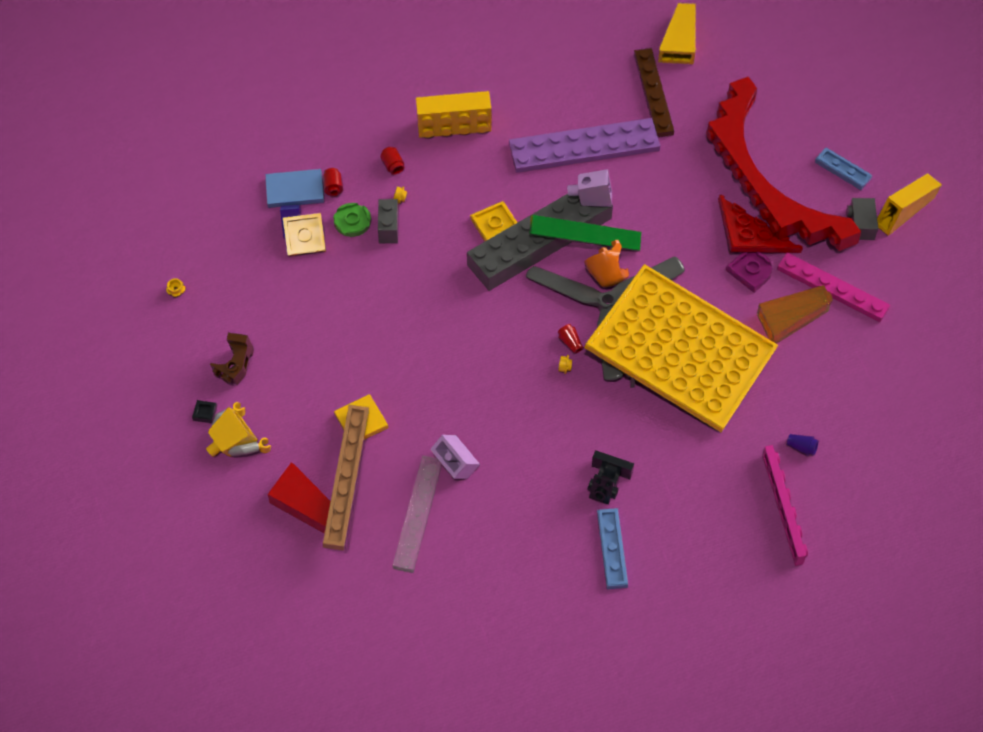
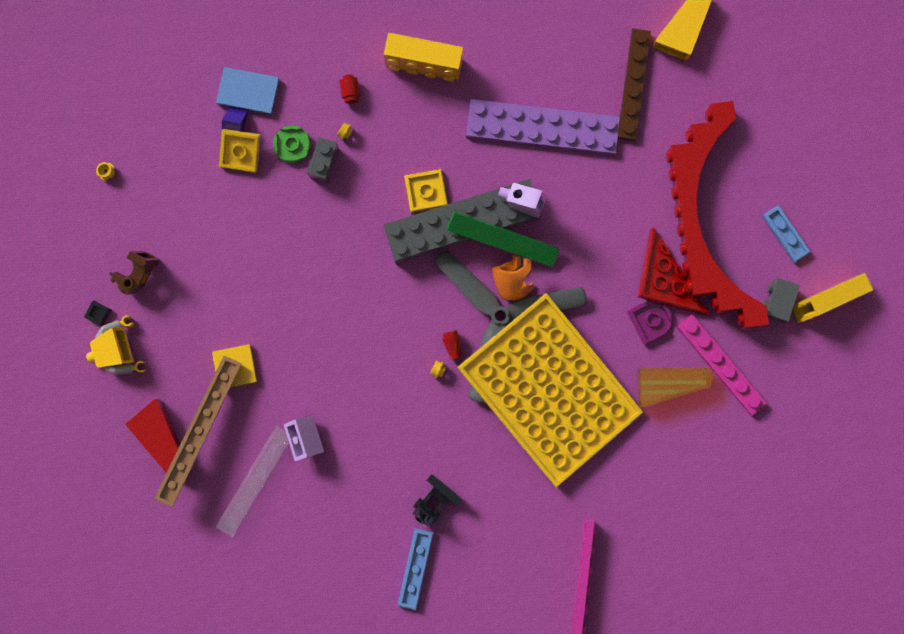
camera: 20 degrees right, 25 degrees up
(332, 182) = (284, 97): red brick -> none
(805, 444) = (625, 523): dark purple cone -> none

